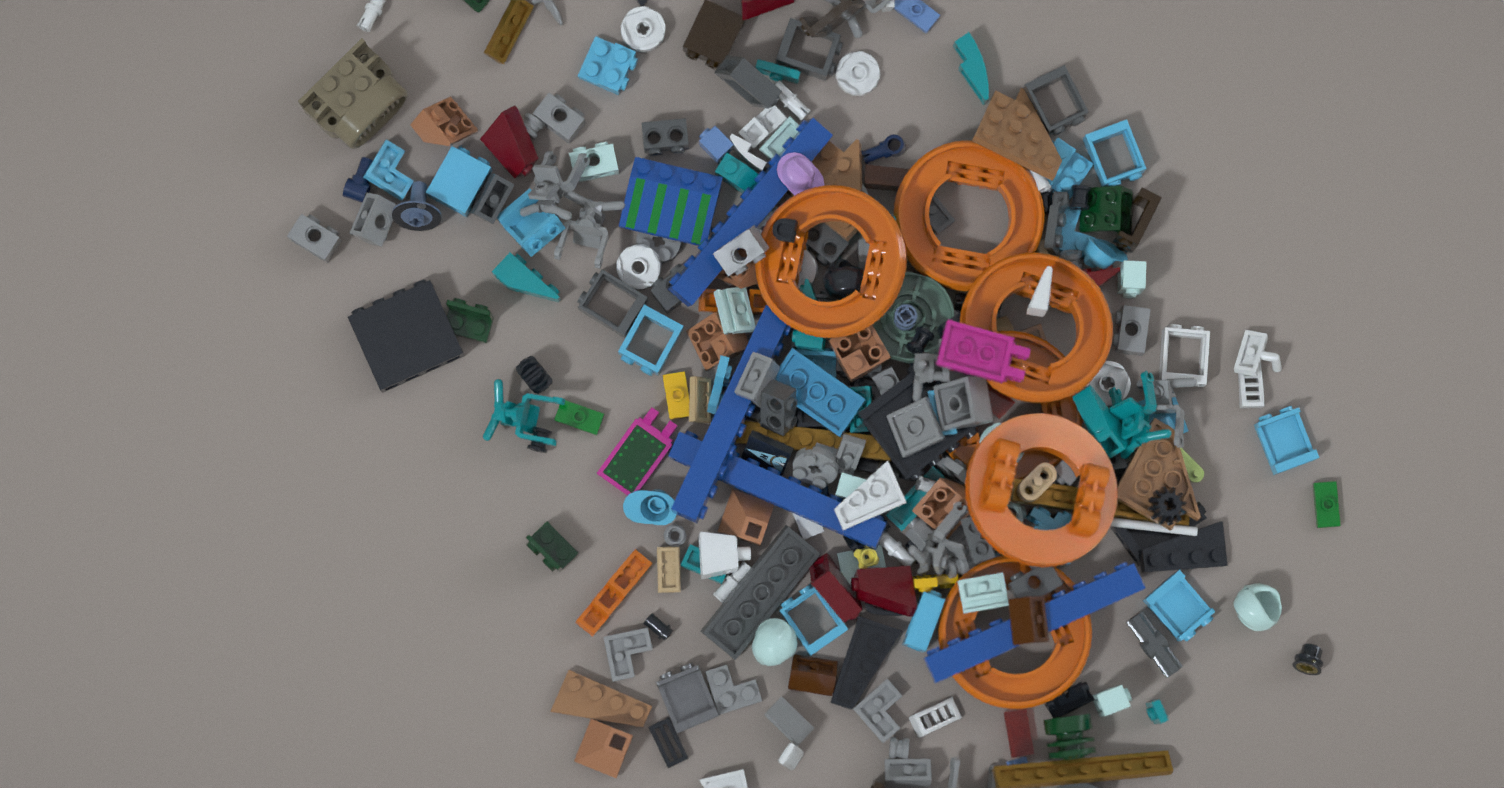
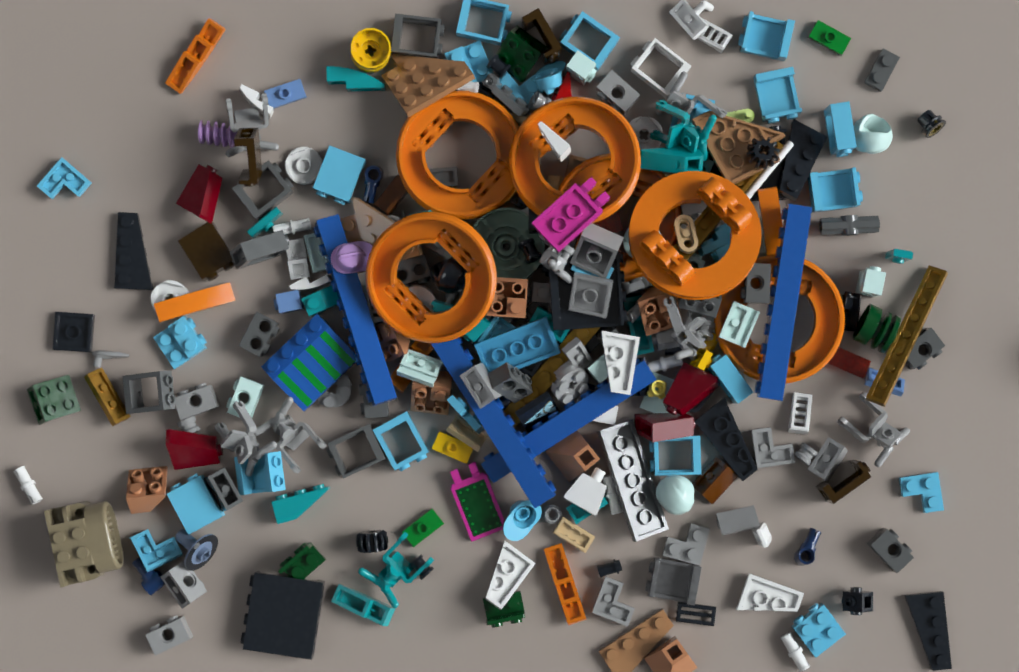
camera: 50 degrees left, 5 degrees up
(465, 408) = (363, 605): none -> teal slope
(528, 53) = (134, 395): none -> dark grey window
(586, 530) = (508, 575): none -> white wing
(645, 255) = (339, 404): white tile -> none
(656, 53) = (194, 302): none -> orange slope
(750, 241) = (378, 326): light grey brick -> none
(785, 230) = (387, 295): black tile -> none
(871, 112) = (338, 175): none -> medium azure panel
(907, 320) = (507, 252): sand blue wheel -> none
(1012, 51) = (375, 40): none -> yellow wheel
(1028, 620) = (782, 306): reddish brown panel -> none
(1113, 555) = (770, 218): none -> orange slope
(1173, 293) = (607, 49): none -> medium azure window
(1235, 489) = (777, 95): none -> medium azure panel
(1242, 571) = (840, 129): none -> medium azure window
(1330, 577) = (882, 70): none -> dark grey plate

